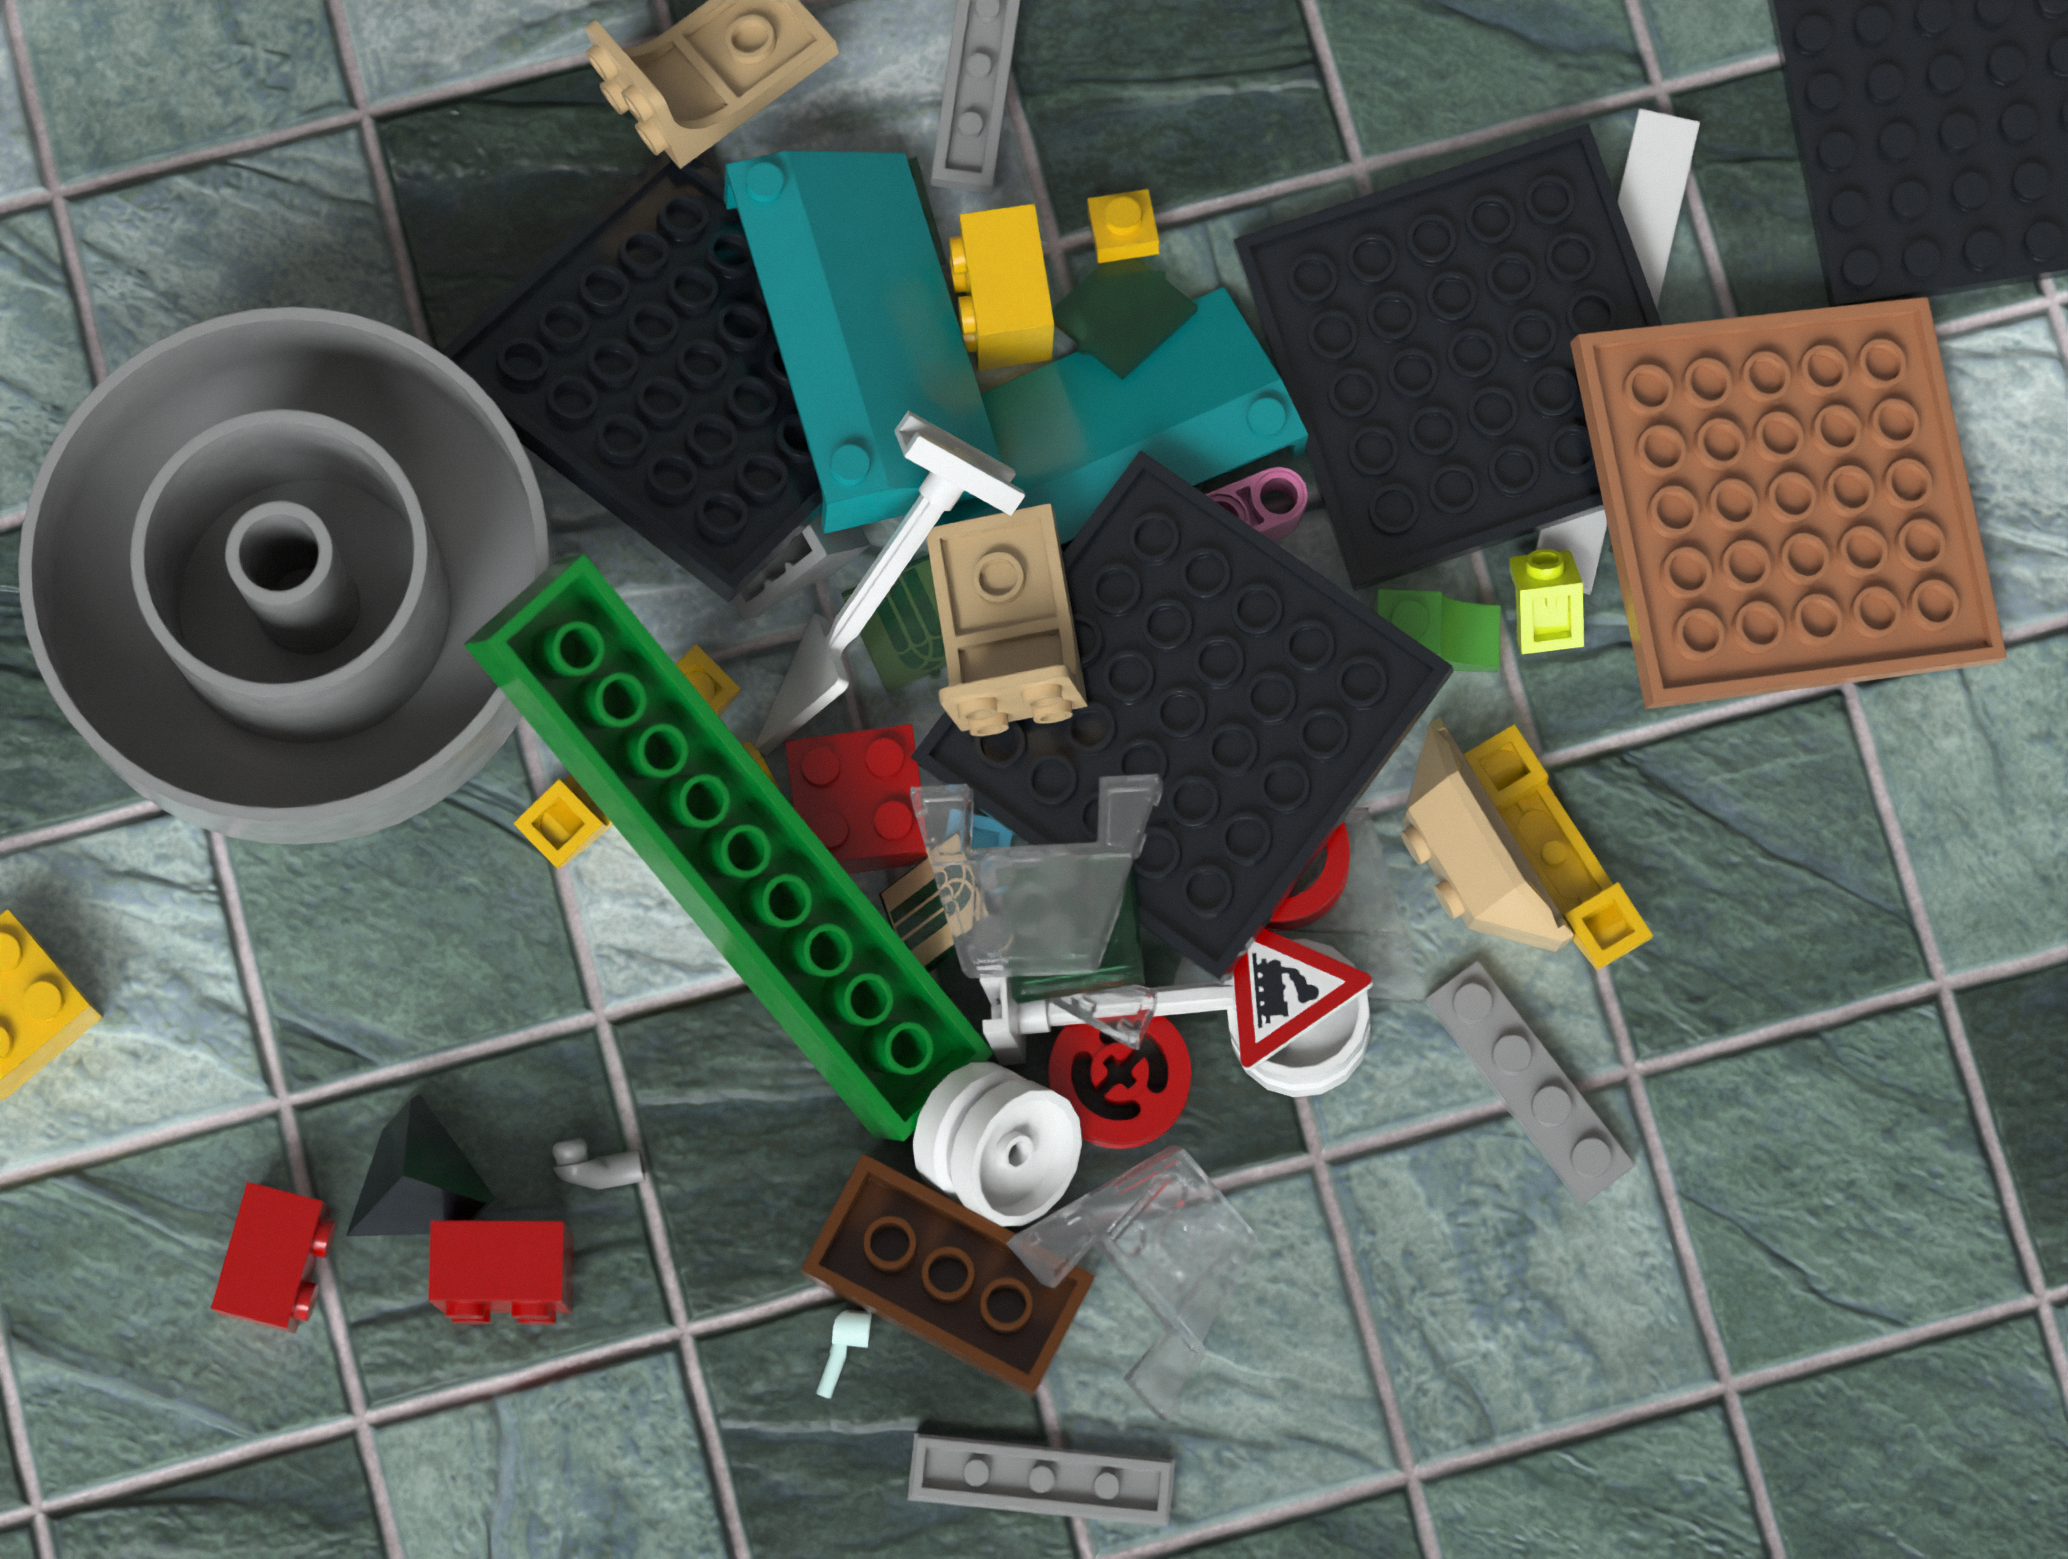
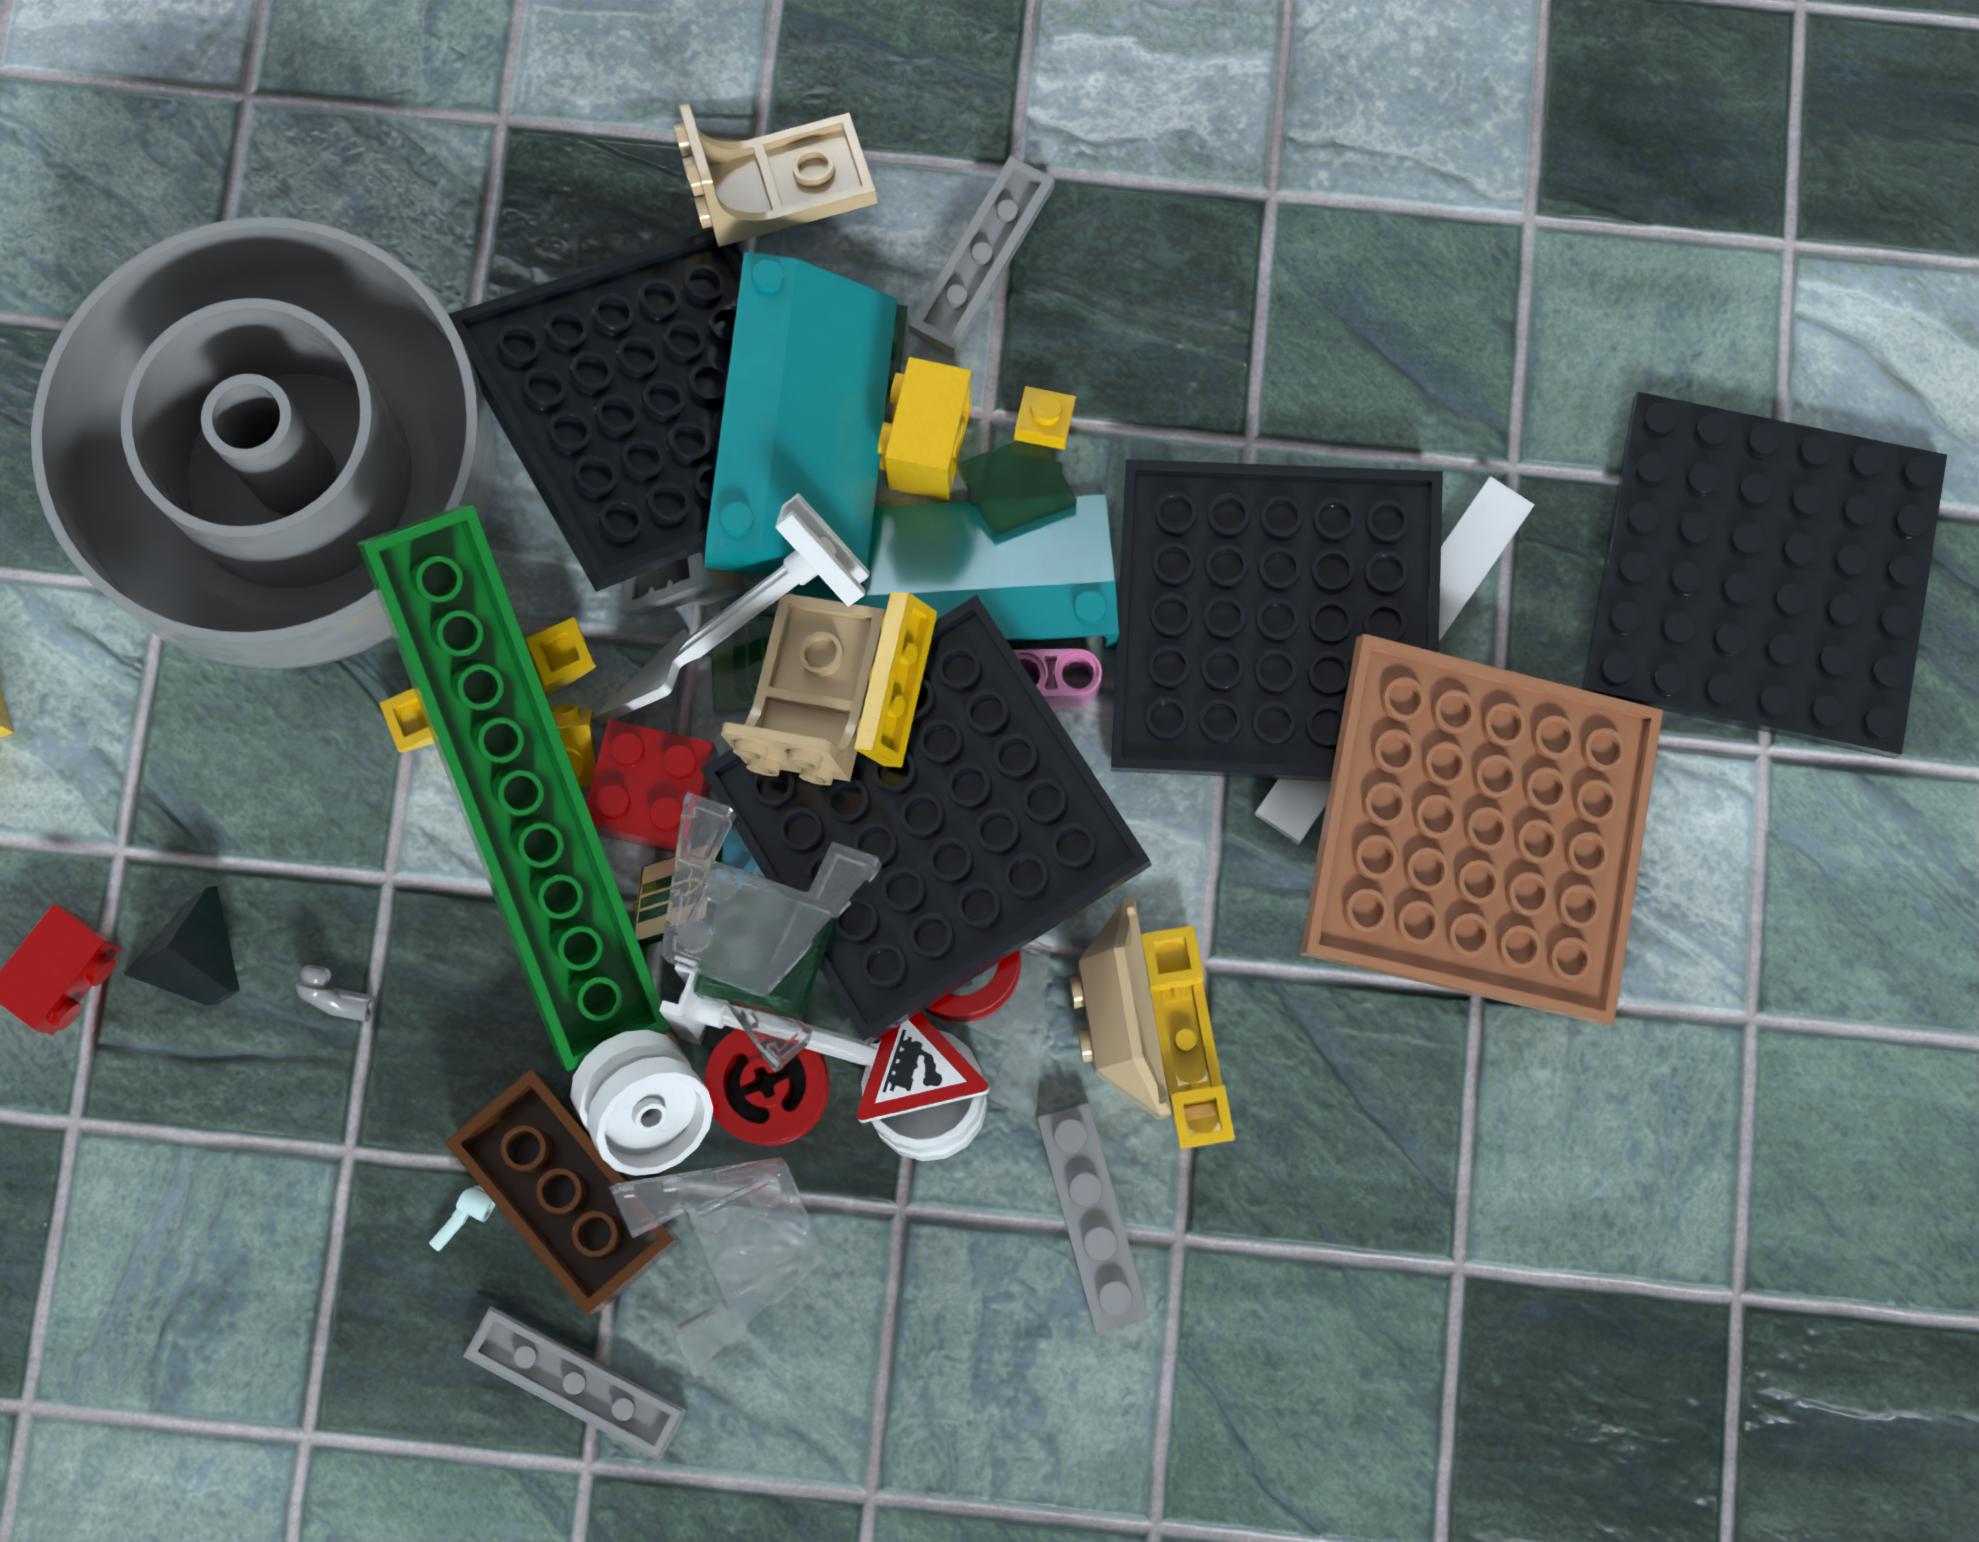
camera: 25 degrees right, 0 degrees up
(501, 1269) = (206, 1044): red brick -> none
(1093, 575) = (895, 679): none -> yellow plate
(1452, 629) = (1166, 828): bright green arch -> none
(1548, 601) = (1260, 837): neon yellow bracket -> none

